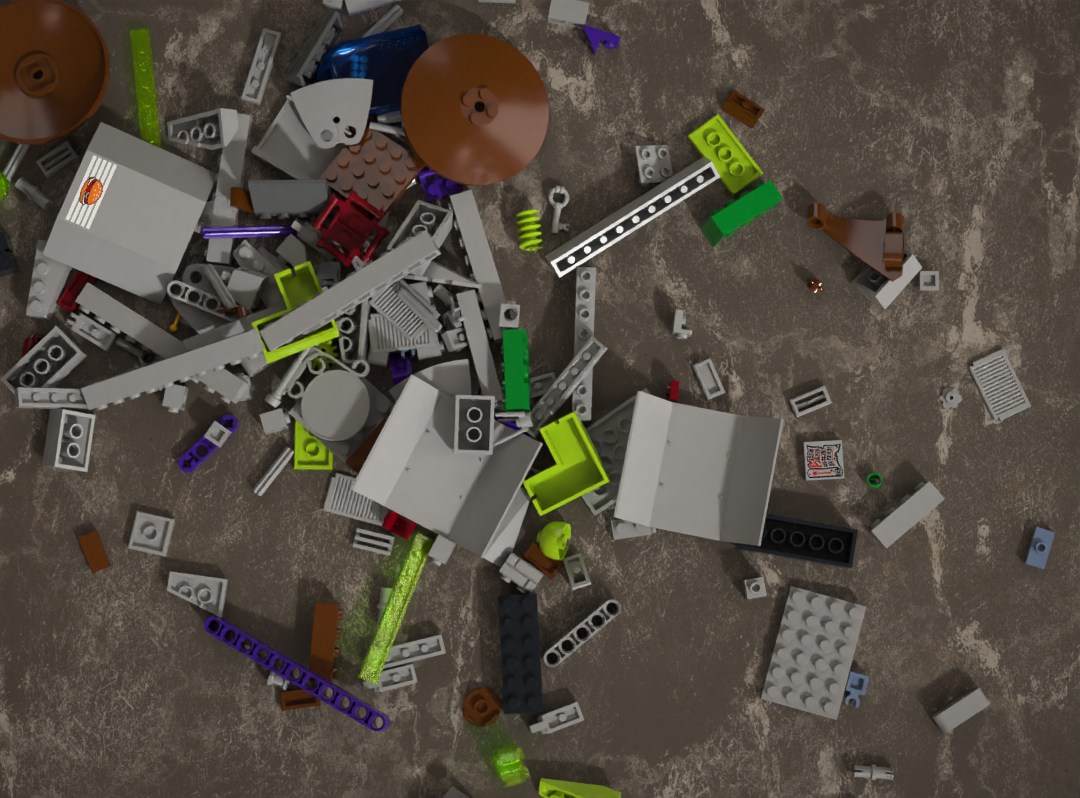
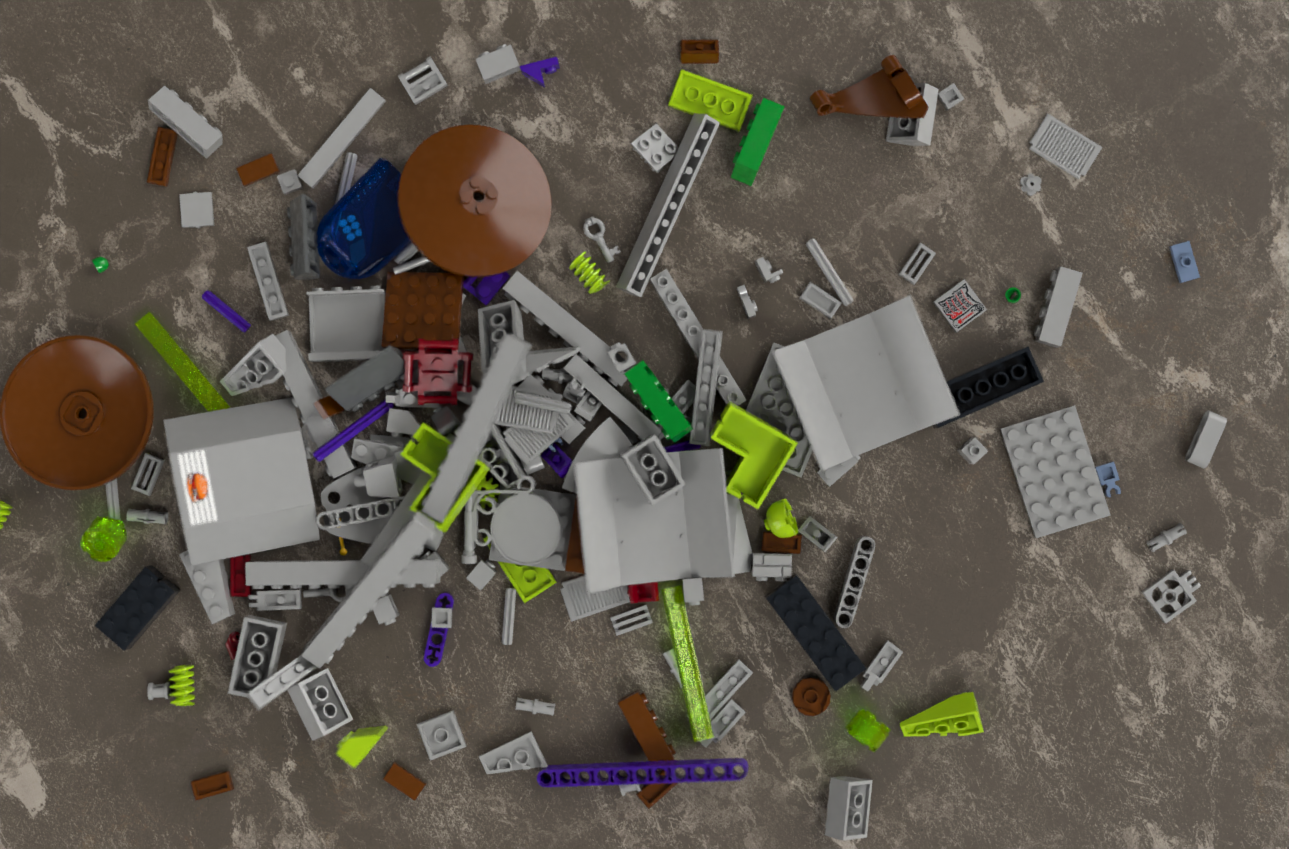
camera: 40 degrees left, 5 degrees up
(78, 494) = (359, 743): none -> lime slope
(211, 68) = (226, 311): none -> dark purple axle
(219, 286) = (360, 493): light grey axle -> none
(240, 311) = (391, 502): reddish brown hand -> none
(245, 560) = (535, 706): none -> light grey pin
(334, 98) = (355, 264): light grey piece -> none
(523, 420) = (691, 438): light grey plant -> none
(645, 345) = (748, 305): none -> light grey plate
(672, 391) = (797, 330): dark red plate -> none
(731, 361) = (829, 272): none -> light grey axle
(815, 285) = (858, 162): reddish brown plate -> none

